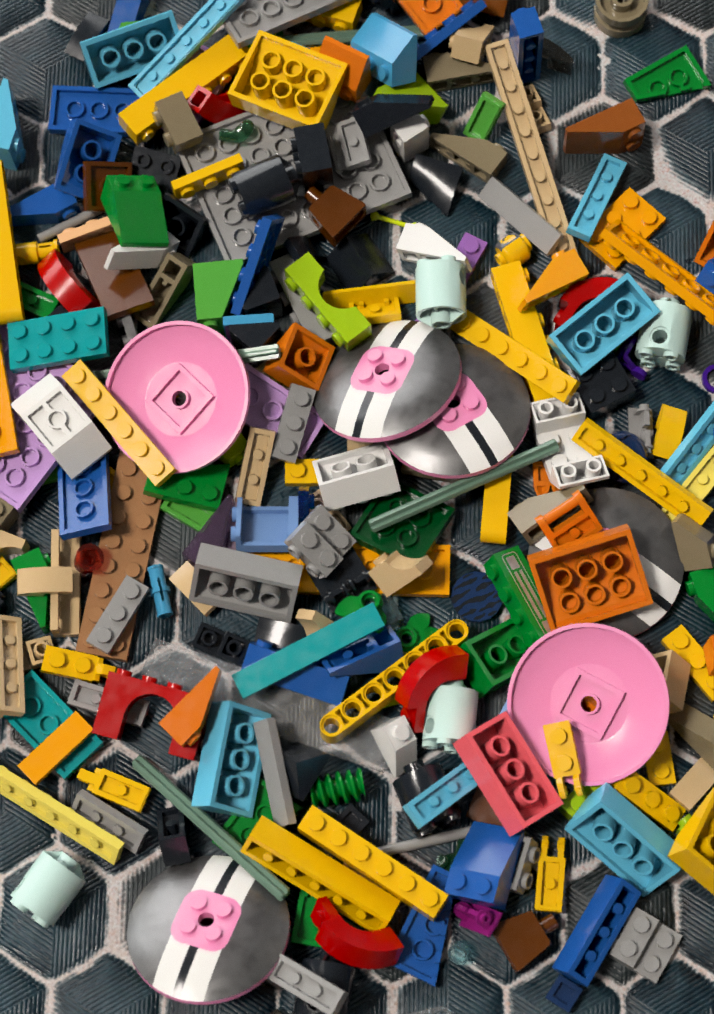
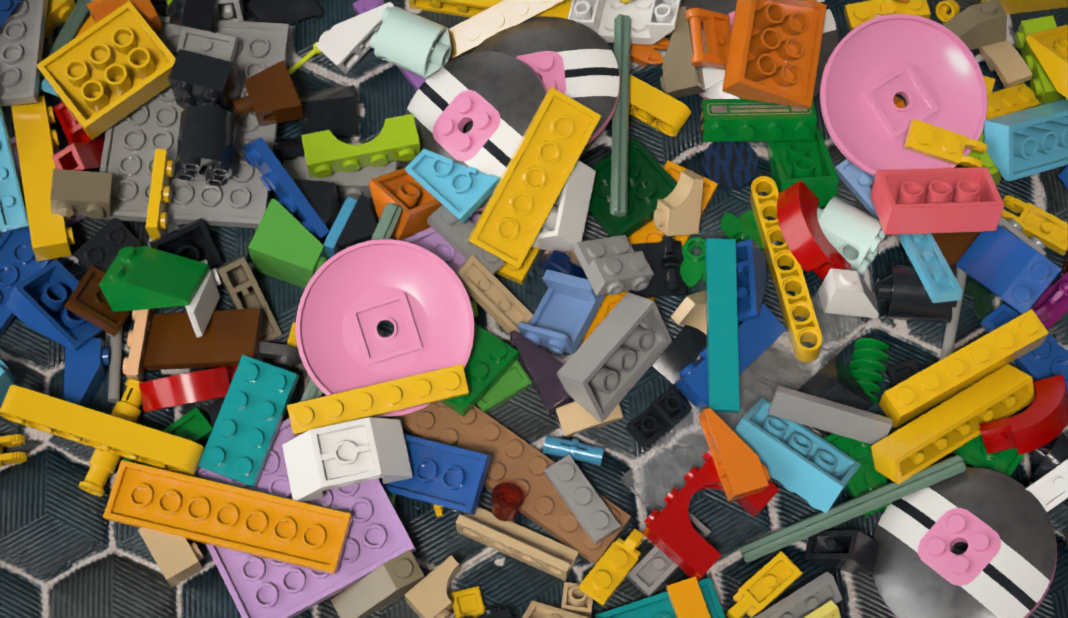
camera: 70 degrees left, 5 degrees down
(39, 604) = (499, 569): green slope -> none
(44, 580) = (511, 552): tan slope -> none
(239, 134) = (129, 147): clear green arm -> none
(326, 385) = (452, 184): none -> medium azure wing
(357, 443) = (534, 177): none -> yellow plate
(375, 302) = (379, 105): yellow bracket -> none

